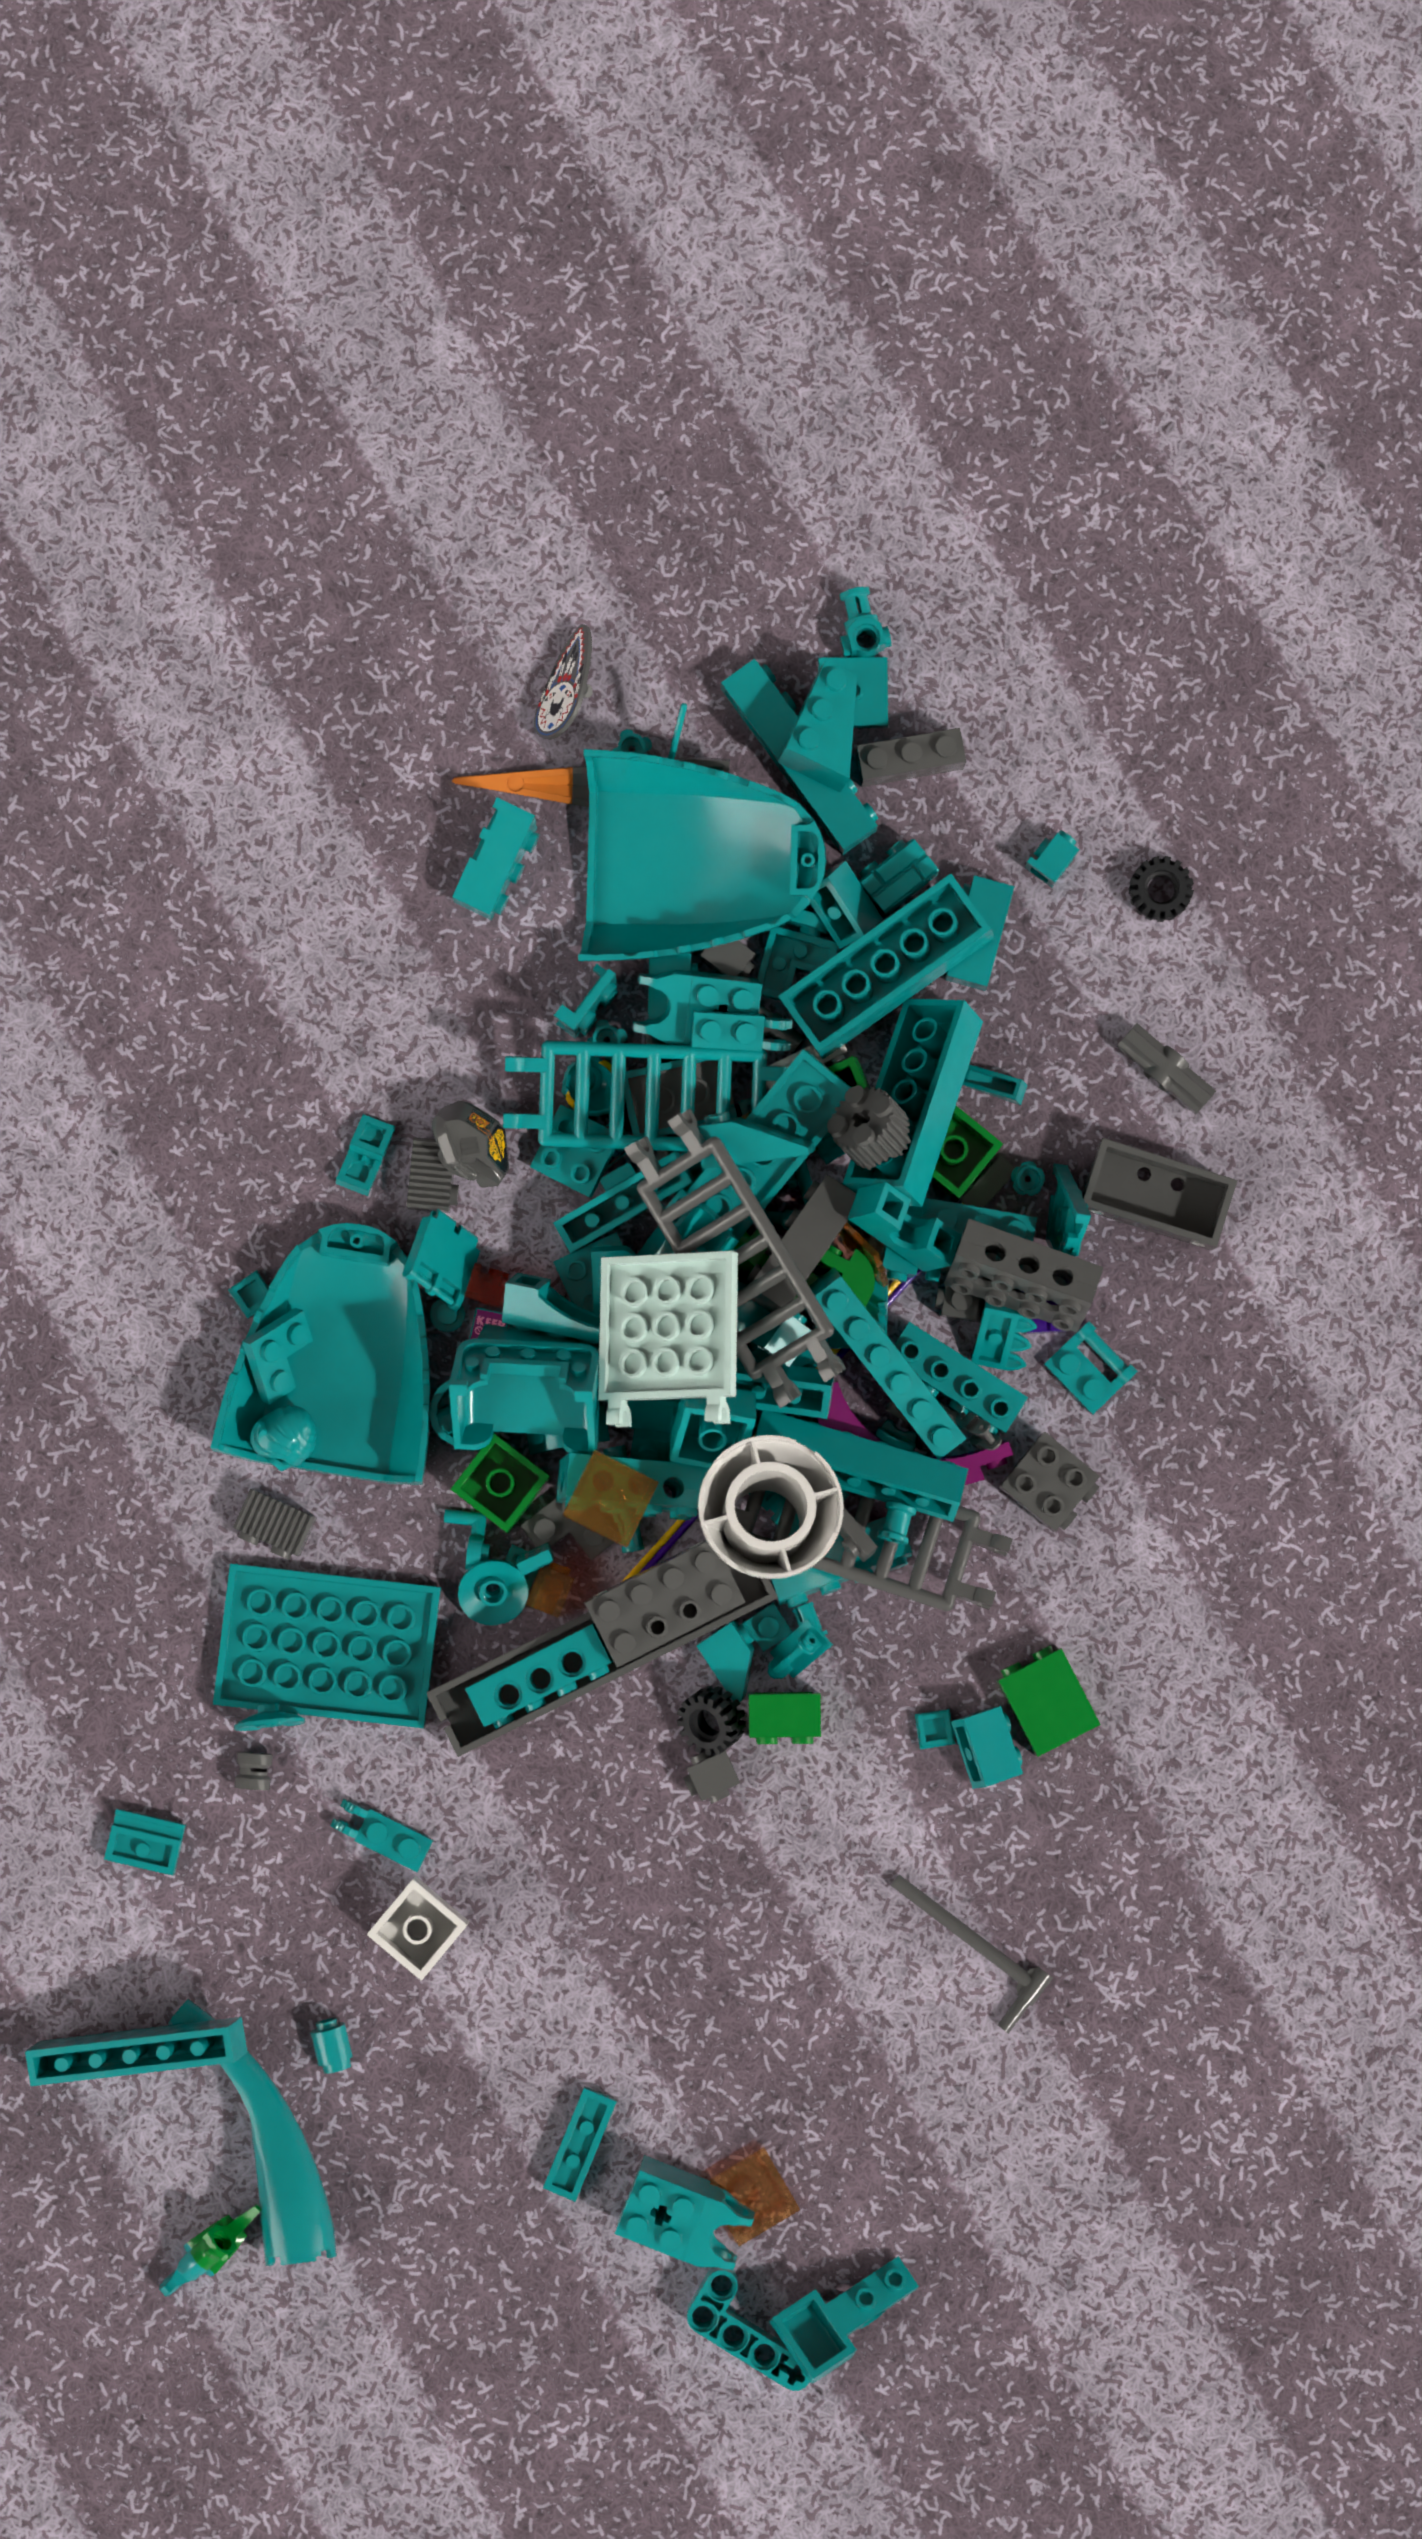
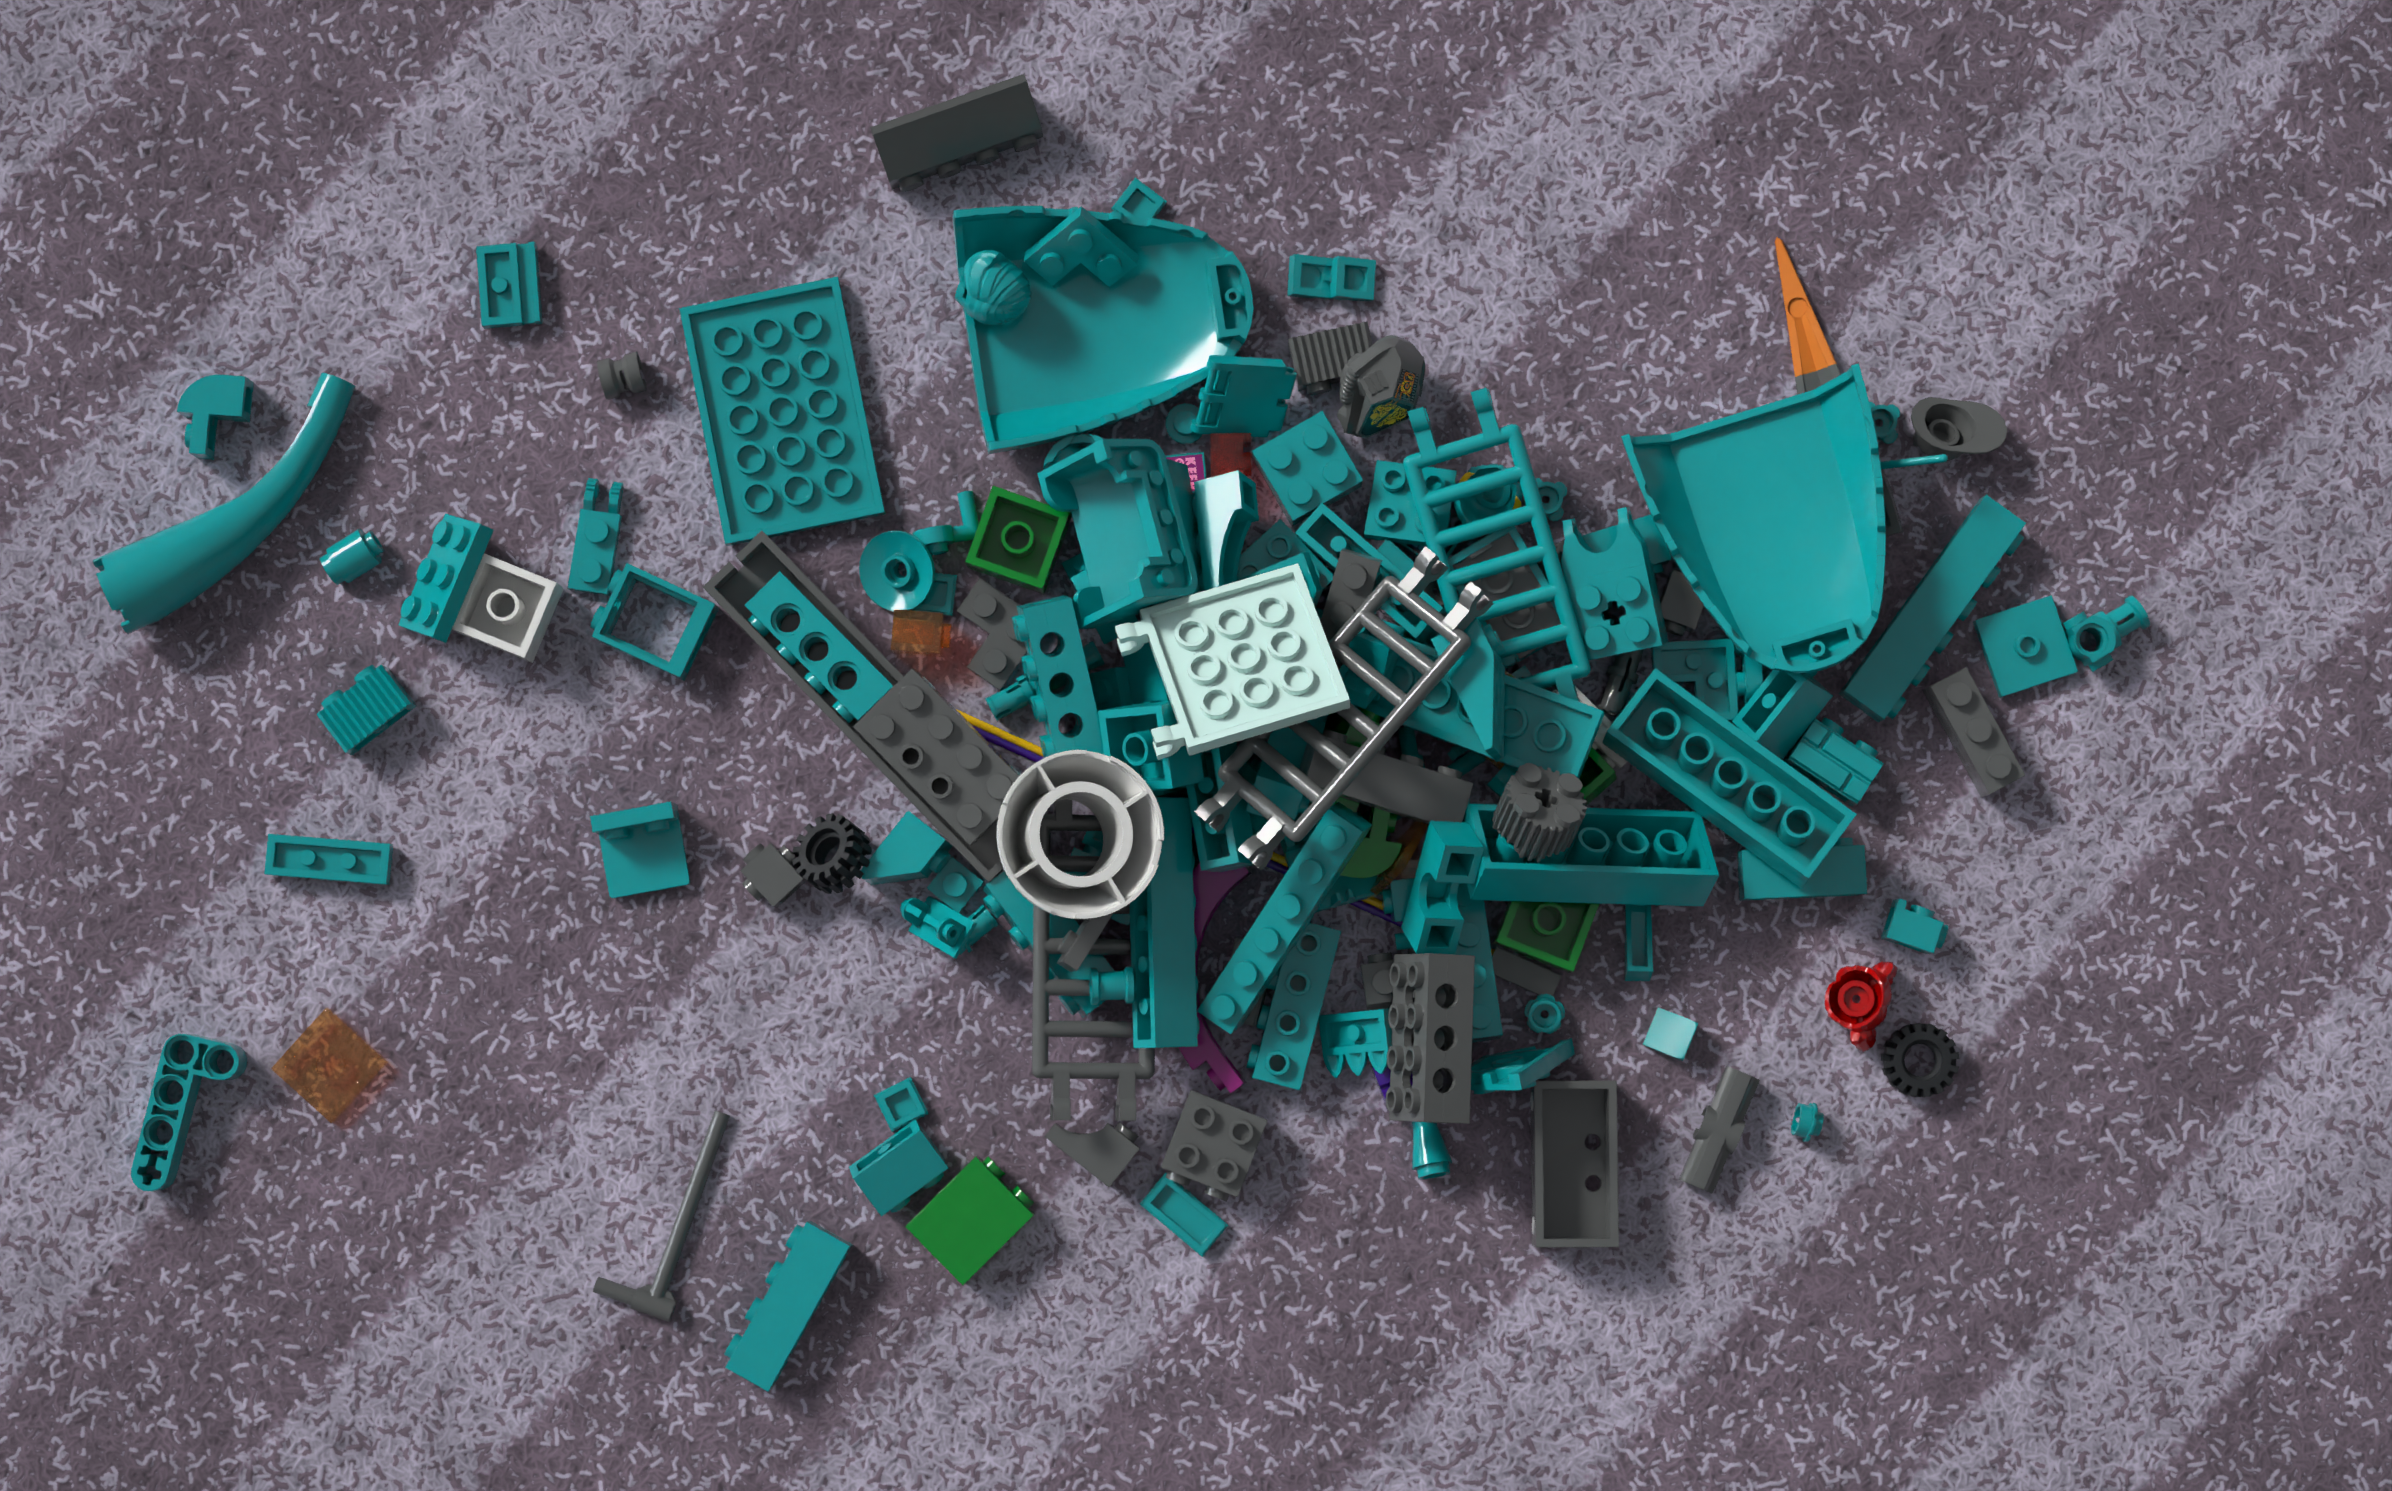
camera: 75 degrees right, 0 degrees up
(136, 2051) = (279, 346): teal brick -> none
(144, 1424) = (958, 133): none -> dark grey slope
(161, 2128) = (213, 400): none -> teal brick
(209, 2250) = (92, 496): green animal -> none
(268, 1716) = (684, 371): teal dish -> none
(274, 1523) = (896, 310): dark grey brick -> none
(376, 1971) = (445, 577): none -> teal plate
(464, 2074) = (365, 708): none -> teal brick
(494, 1781) = (691, 639): none -> teal window
(497, 860) = (1704, 313): teal wedge -> none
(518, 1226) = (1307, 468): none -> teal brick
(535, 1559) = (946, 603): teal tile -> none
(565, 686) = (1923, 326): shield -> none
(584, 1016) = (1560, 463): teal piece -> none
(610, 1498) = (1035, 658): clear orange tile -> none
(636, 1224) = (1350, 587): none -> dark grey plate
(657, 1878) = (642, 849): none -> teal bracket
(658, 687) = (1956, 427): none -> dark grey piece
(690, 2219) = (283, 1001): teal brick -> none
(736, 1031) = (1599, 633): teal hinge -> none
(784, 1715) = (861, 931): green brick -> none
(819, 2331) = (203, 1183): teal plate -> none
(824, 729) = (1970, 623): teal wedge -> none
(896, 1437) = (1215, 949): teal piece -> none
(980, 1429) = (1246, 1046): dark grey piece -> none
(1026, 1576) = (1100, 1152): none -> dark grey arch
(1071, 1873) = (788, 1305): none -> teal brick
(1076, 1082) = (1670, 1034): none -> slope
(1081, 1376) = (1343, 1145): teal plate -> none
(1098, 907) = (1875, 996): none -> red hair
(1098, 1525) = (1184, 1214): none -> teal tile
(1112, 1308) = (1429, 1151): none -> teal cone
(1183, 993) = (1809, 1122): none -> teal plate

